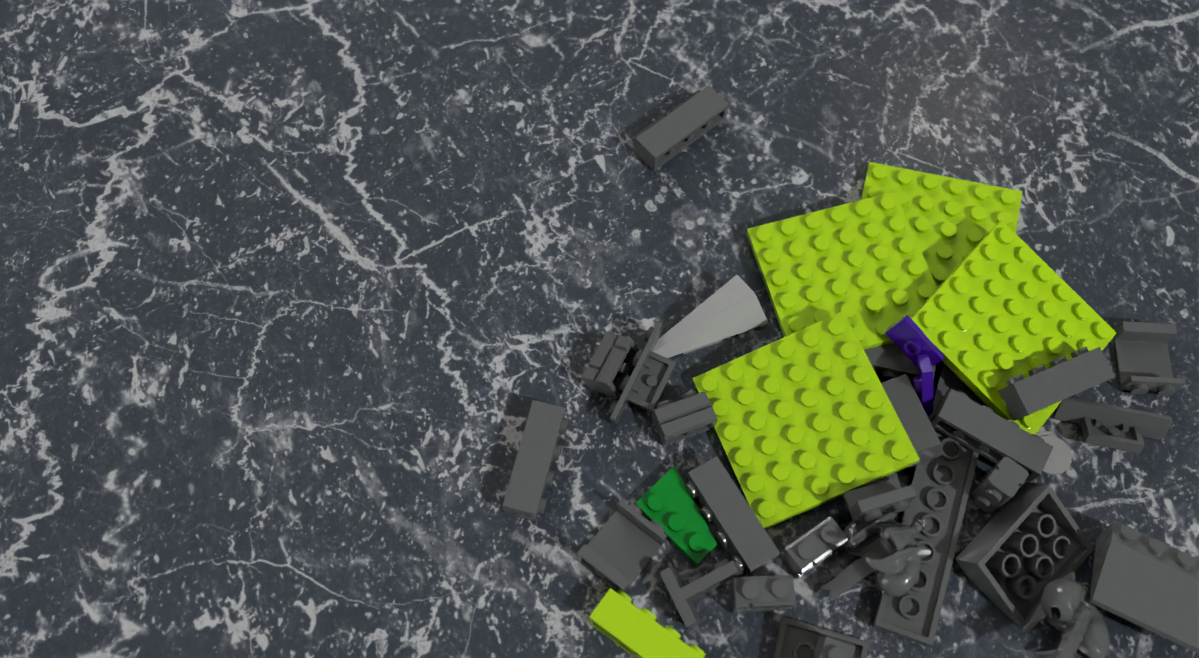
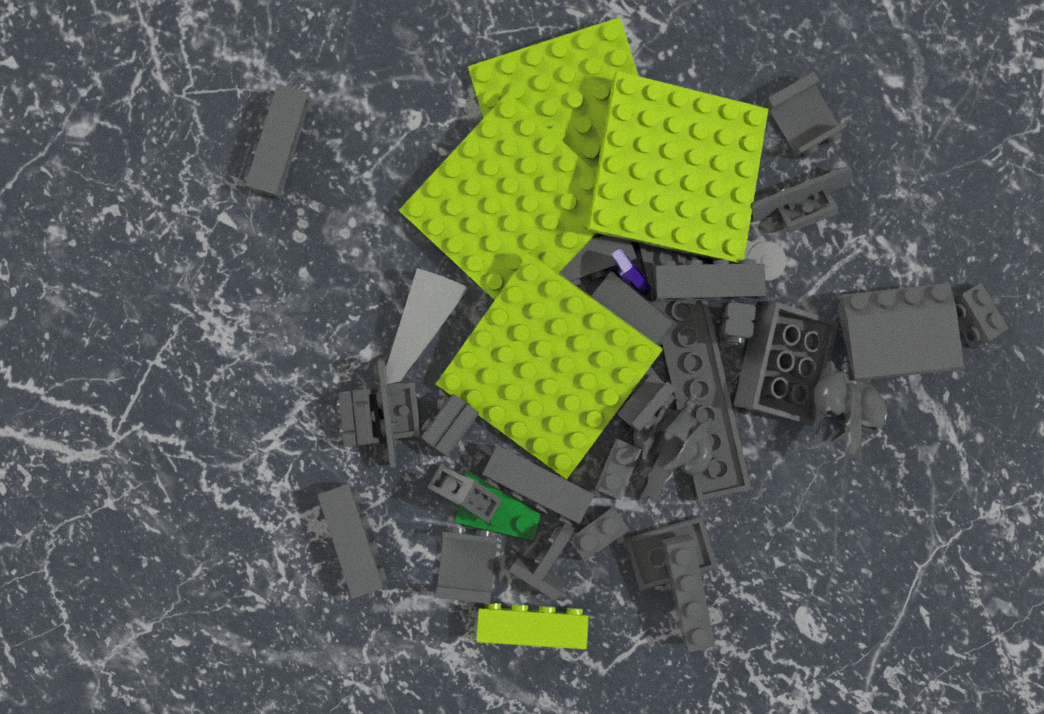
camera: 30 degrees left, 20 degrees up
(665, 478) = (465, 493): none -> dark grey bracket
(913, 341) = (602, 242): dark purple plate -> none
(1055, 383) = (739, 203): dark grey brick -> none

